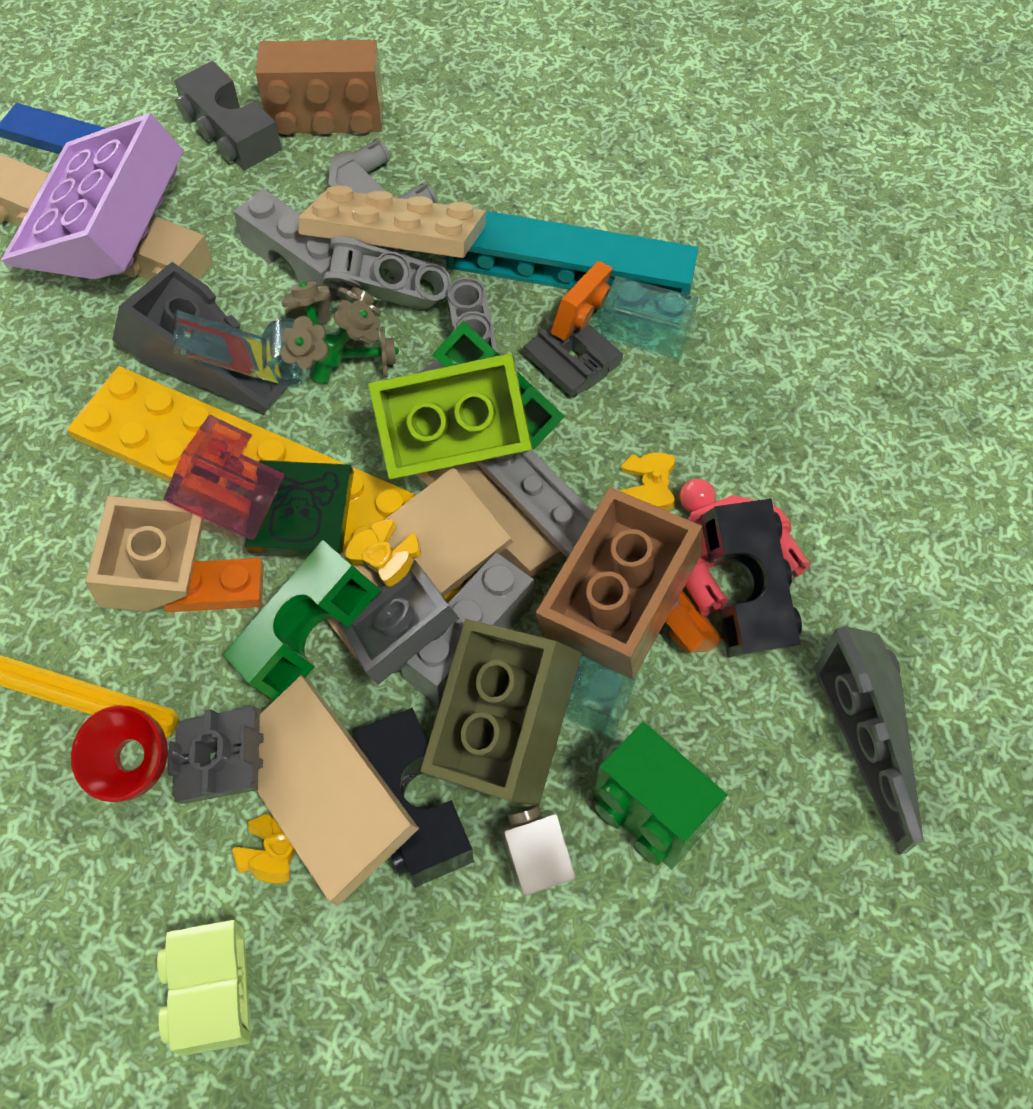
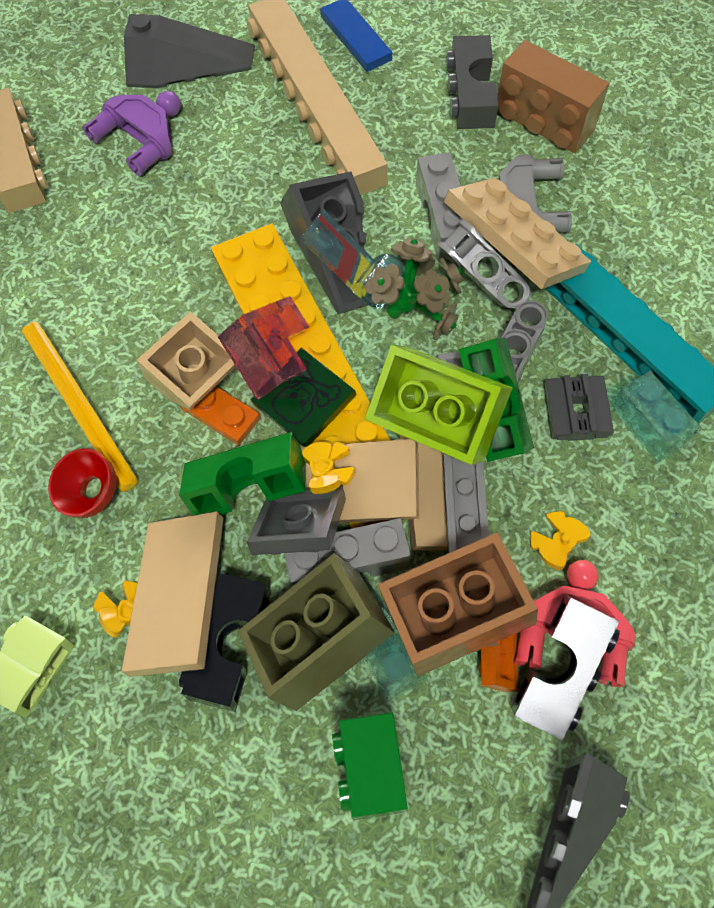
camera: 40 degrees right, 5 degrees up
(97, 201) = (335, 100): lavender slope -> none
(234, 771) = (135, 525): dark grey piece -> none
(536, 850) = (270, 739): brick -> none
(581, 301) = (605, 374): orange plate -> none

